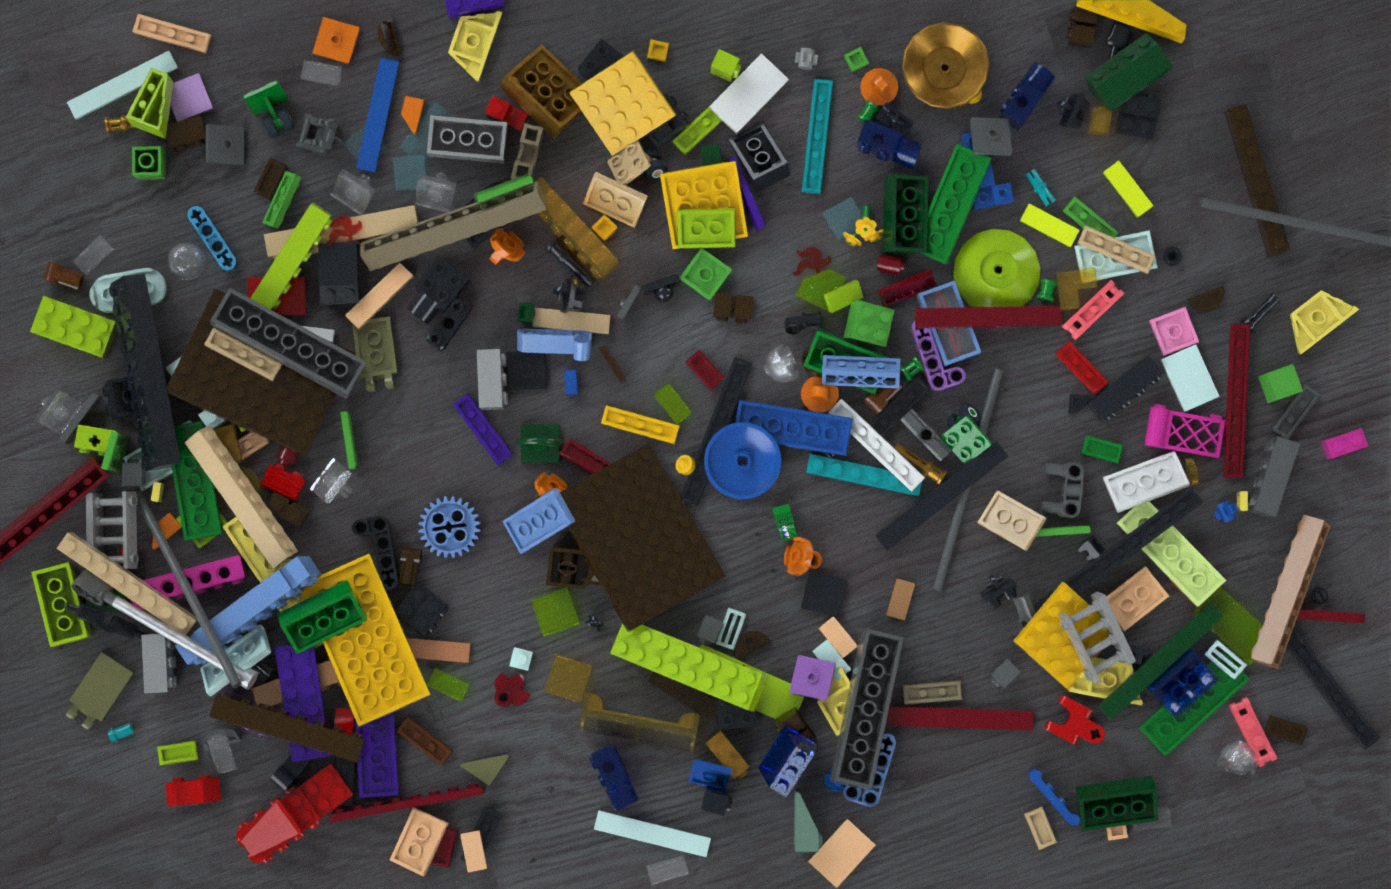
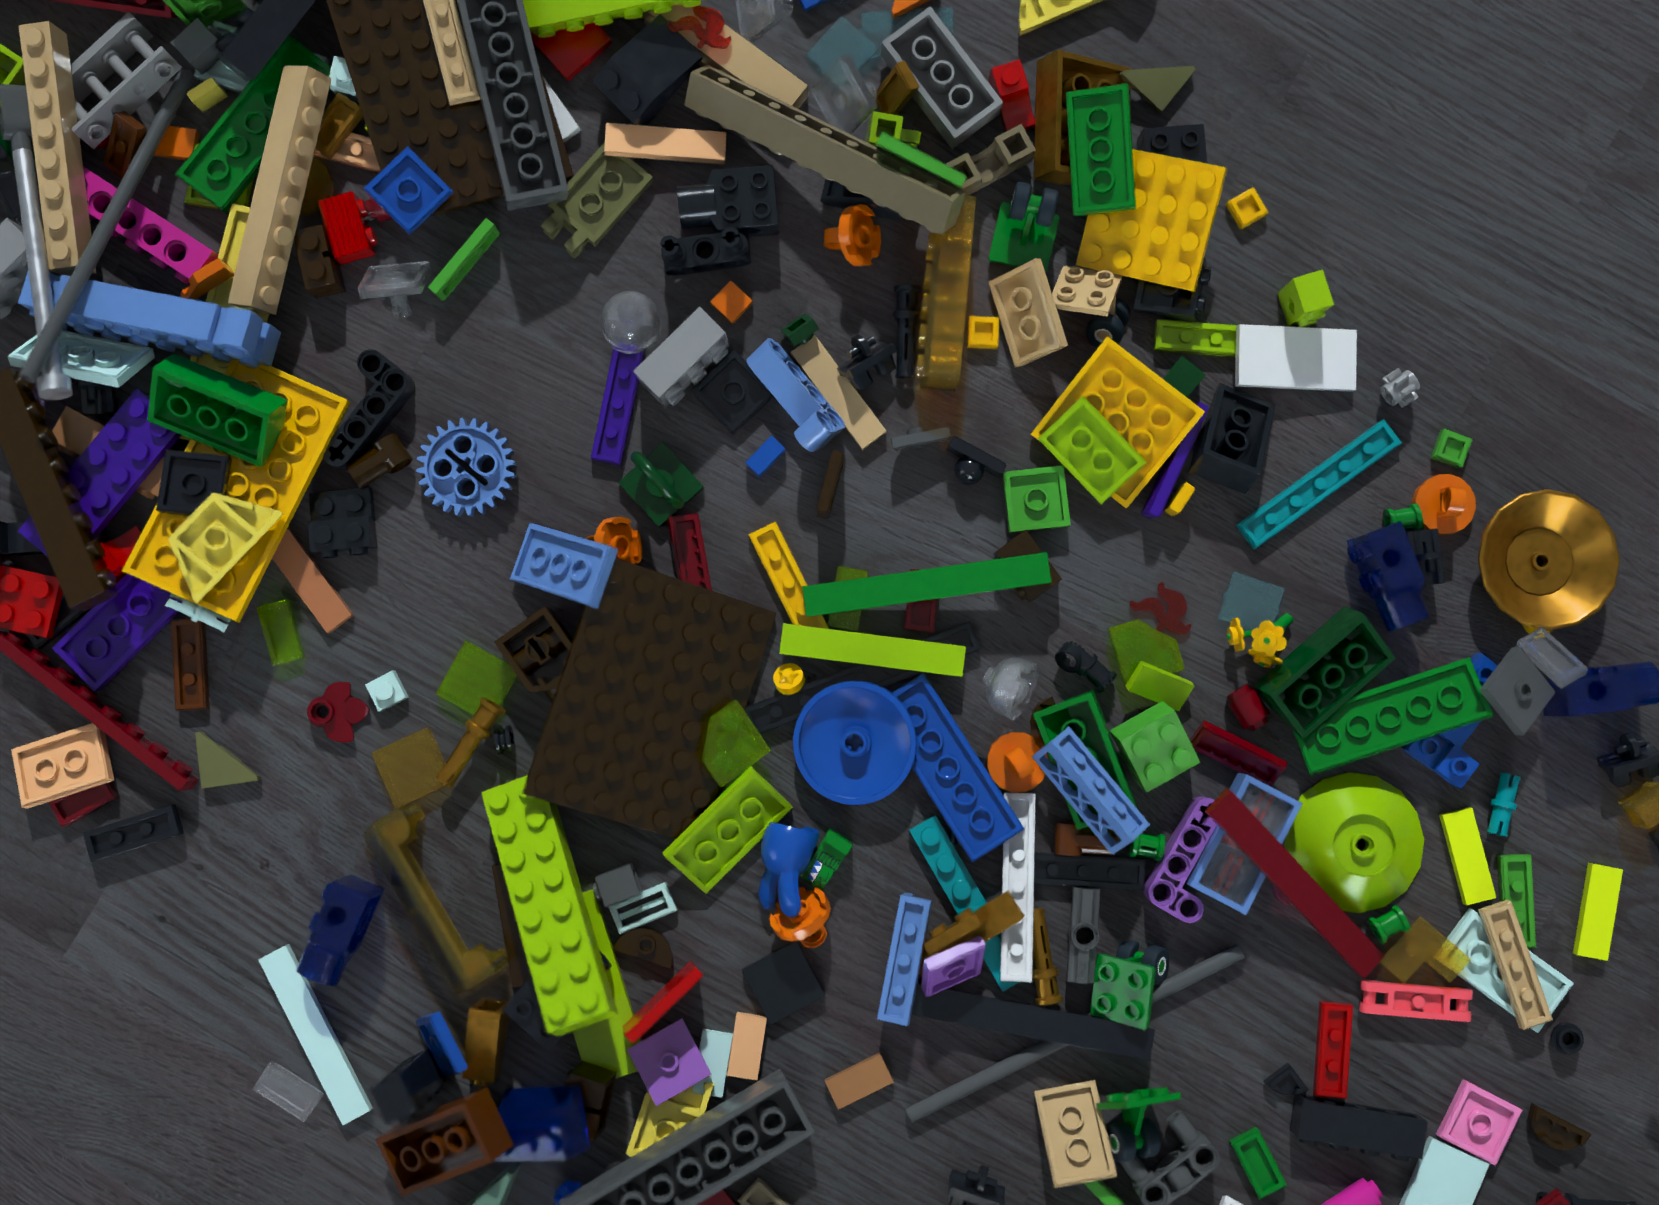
camera: 50 degrees right, 0 degrees up
(149, 552) = (123, 142): none -> reddish brown plate
(250, 571) = (207, 279): none -> orange tile
(297, 436) = (408, 190): none -> blue tile
(347, 658) = (190, 480): none -> black tile
(385, 667) = (217, 539): none -> light yellow wing
(405, 712) = (197, 612): none -> light aqua pin
(450, 388) = (630, 322): none -> clear cylinder
(454, 166) = (896, 89): none -> pearl gold tile
(470, 187) = (892, 126): none -> lime brick
(473, 851) = (103, 841): light nougat tile -> none
(483, 332) = (731, 302): none -> orange tile
(562, 39) = (1157, 85): none -> olive tile
(571, 98) = (1101, 150): none -> green tile
(574, 164) = (1025, 228): none -> green plate
(578, 630) = (477, 729): none -> pearl gold pin
(692, 517) = (731, 744): none -> clear neon green plate
(699, 361) = (927, 584): none -> green tile
(707, 414) = (872, 650): none -> lime tile
(730, 555) = (727, 830): none -> lime tile
(756, 810) = (445, 1142): none -> reddish brown brick
(765, 208) = (1179, 499): none -> yellow tile
(767, 539) = (786, 855): none -> blue piece
(781, 654) = (662, 1002): none -> red tile
(862, 526) = (904, 959): none -> medium blue fence
(875, 489) = (984, 922): none -> pearl gold bracket
(885, 507) = (952, 966): none -> medium lavender plate
(989, 107) = (1552, 657): none -> clear tile
(1035, 493) = (1135, 1133): none -> plate

